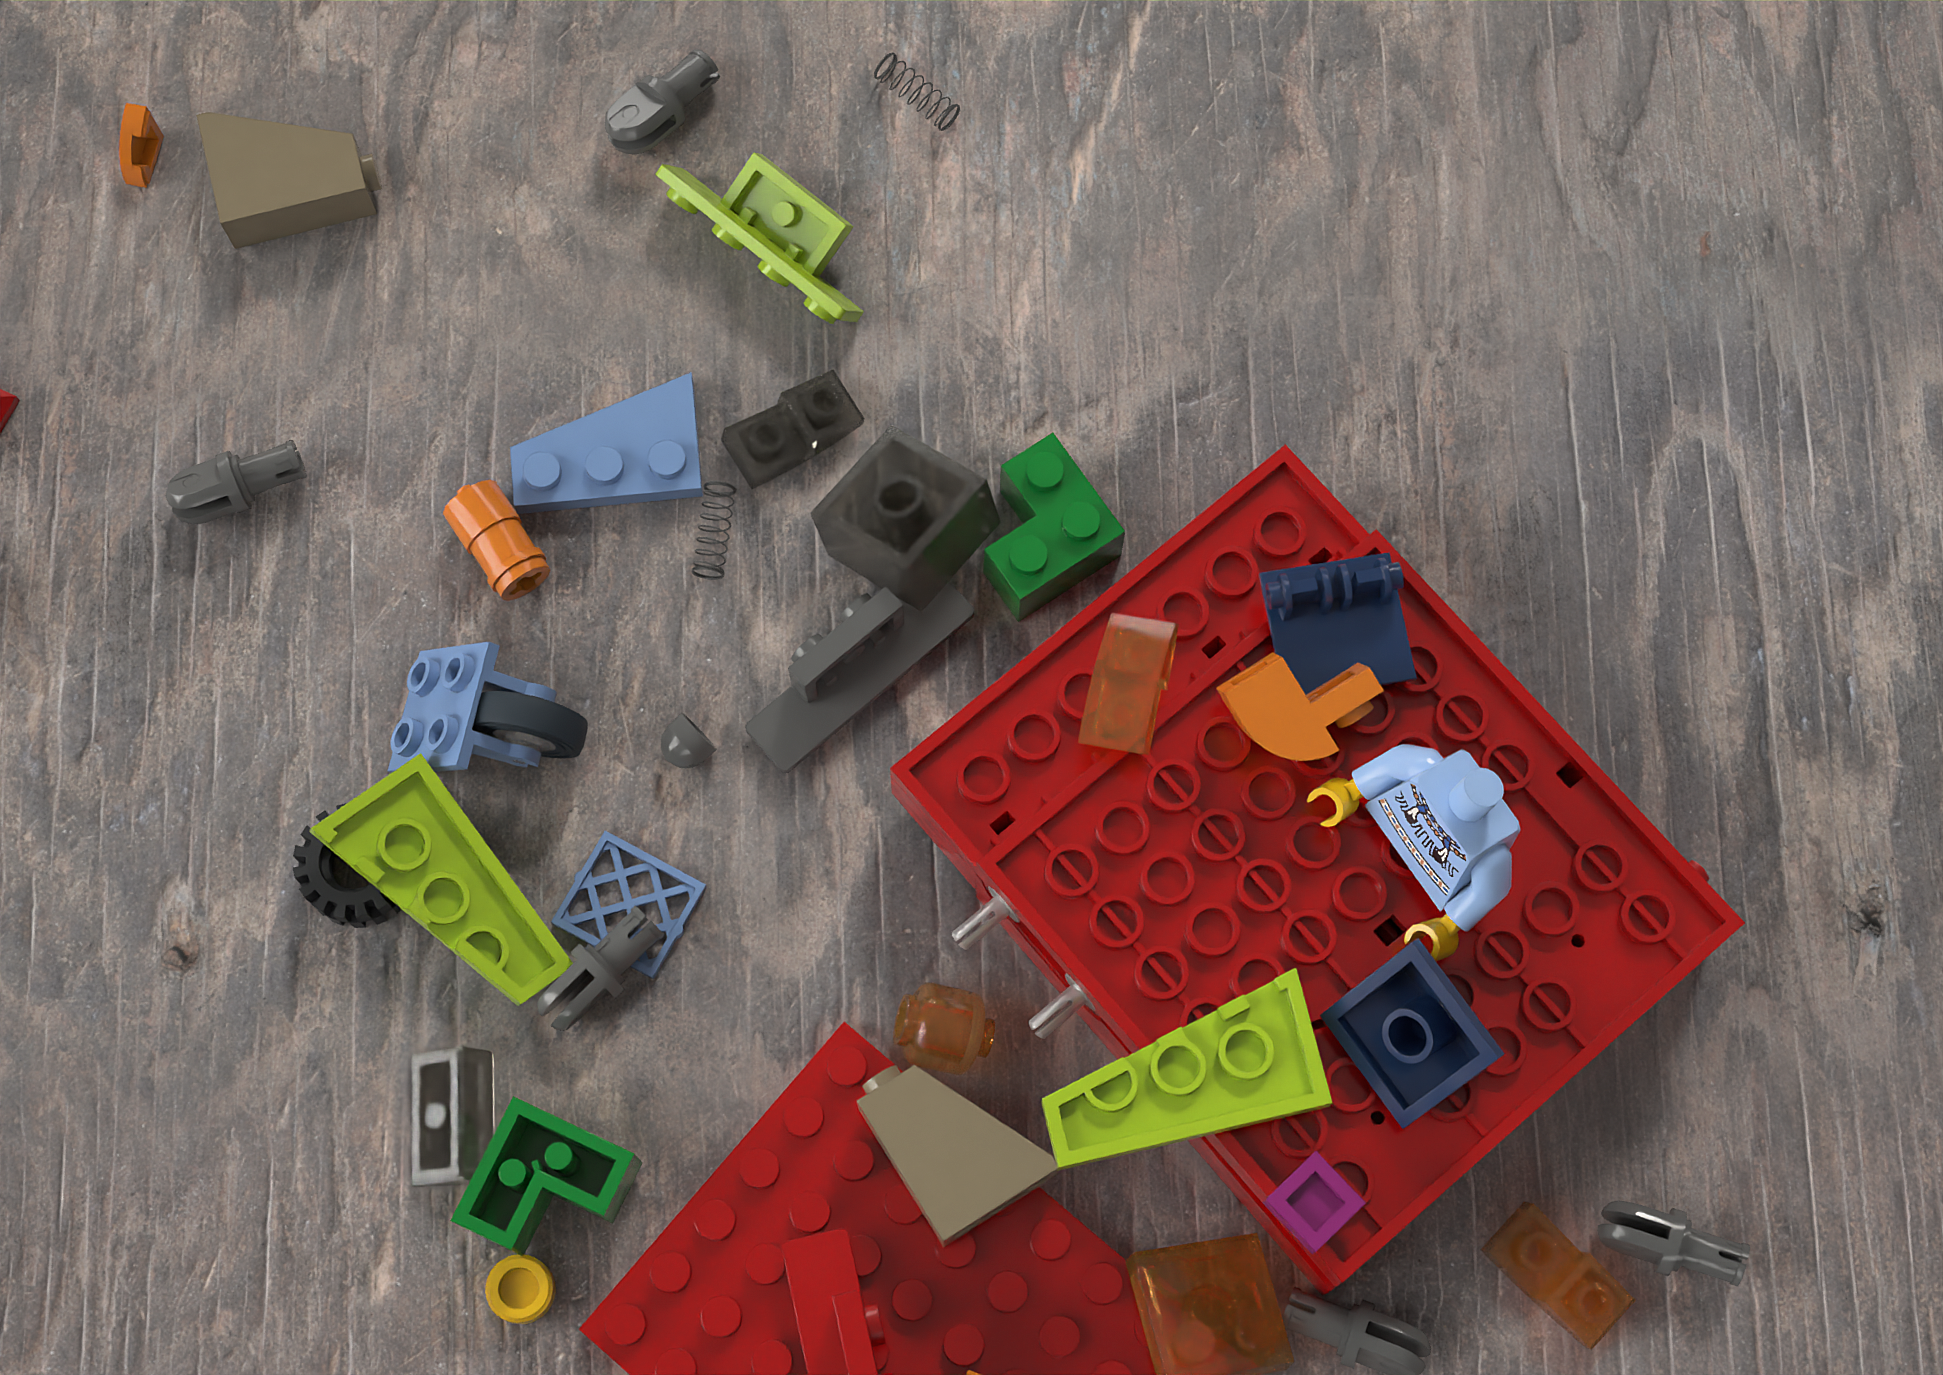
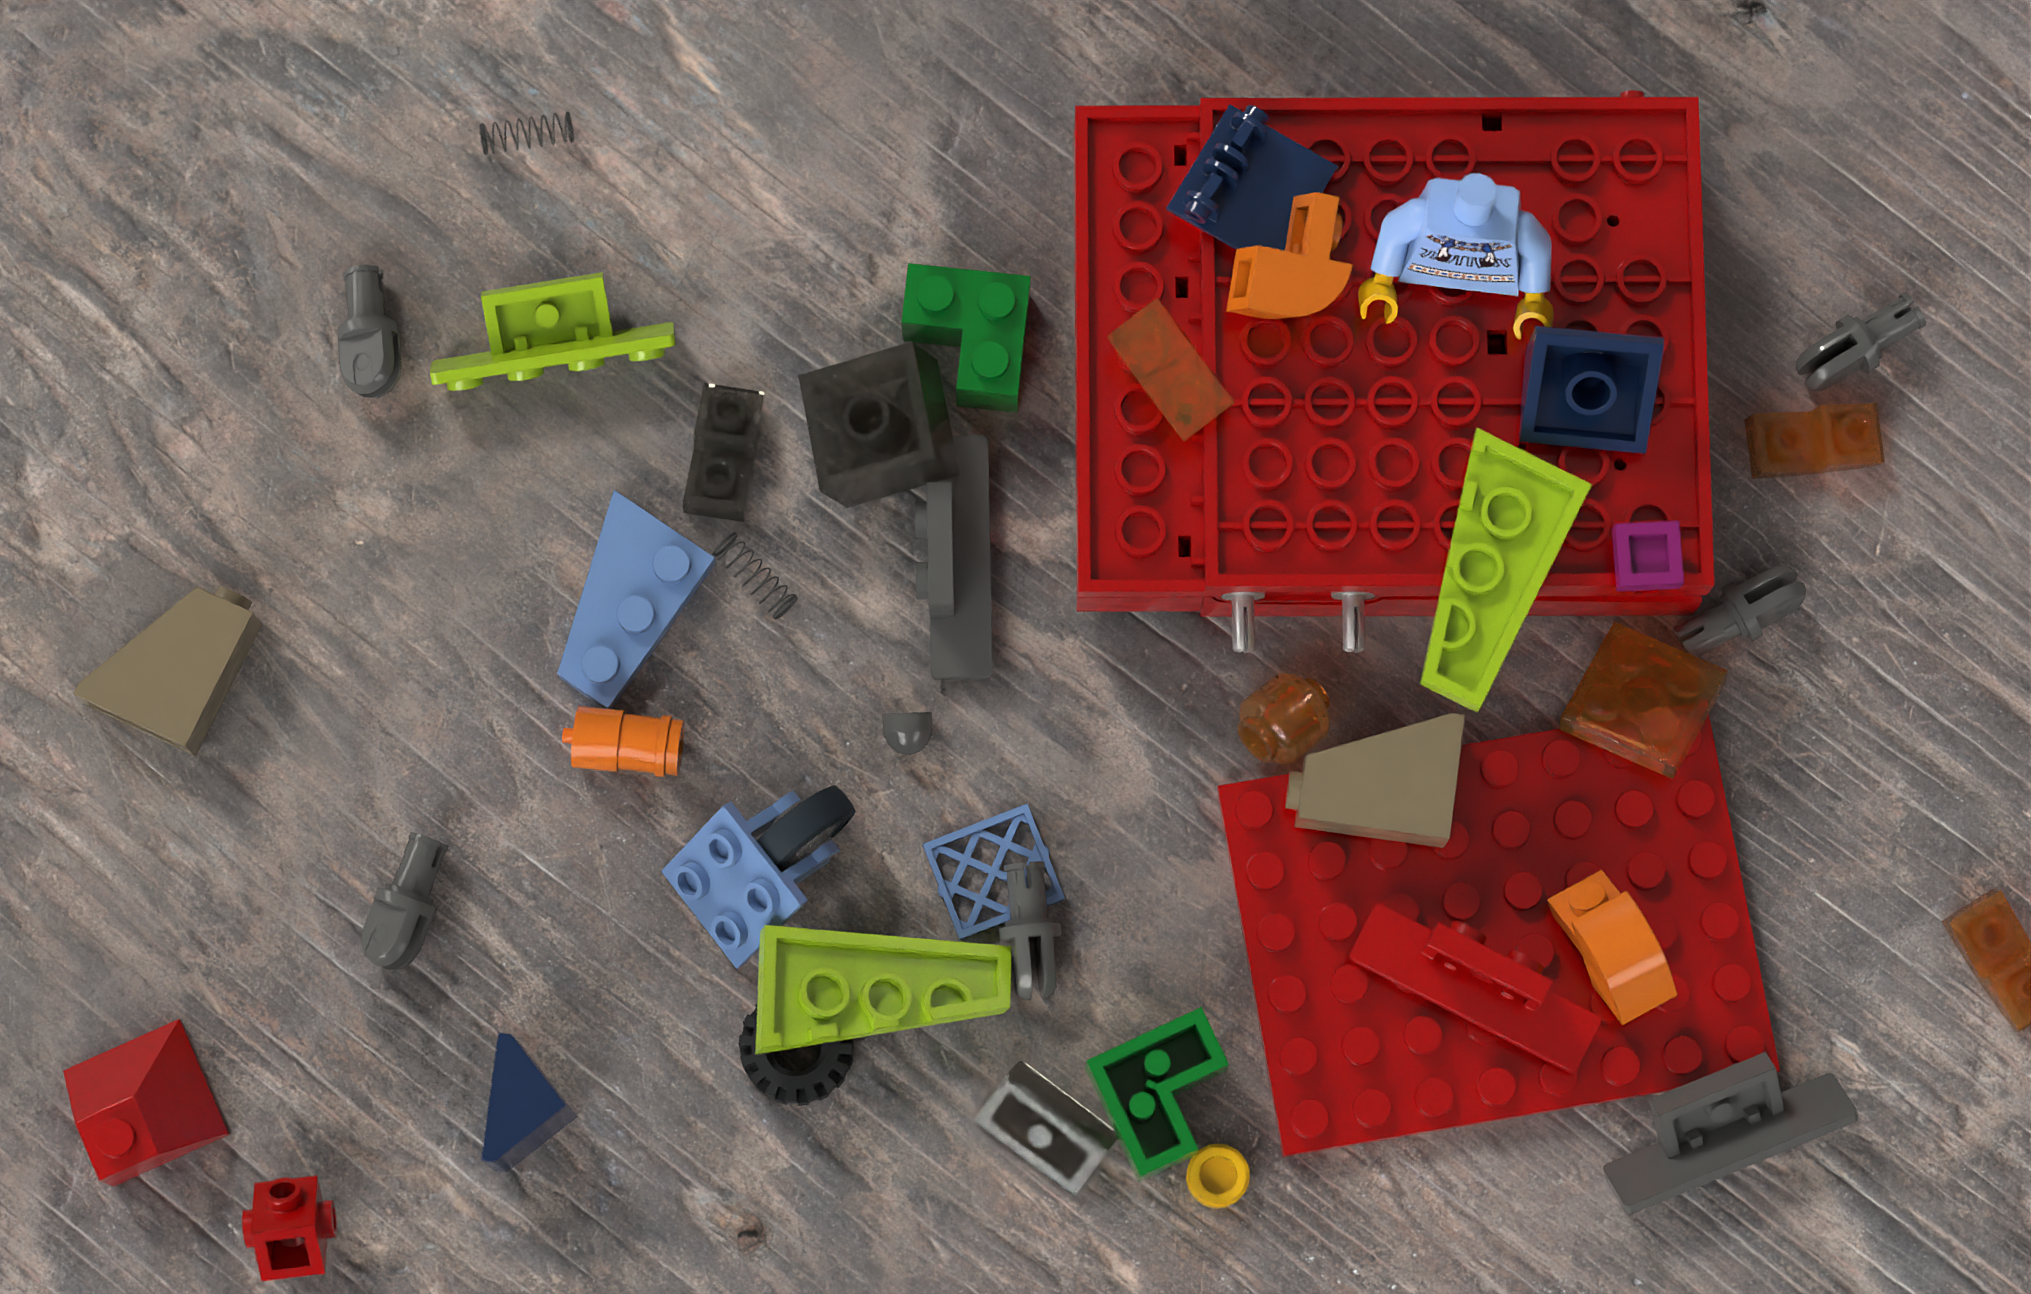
camera: 50 degrees left, 5 degrees up
(130, 687) = (521, 1107): none -> dark blue slope
(138, 145) = (48, 761): orange tile -> none

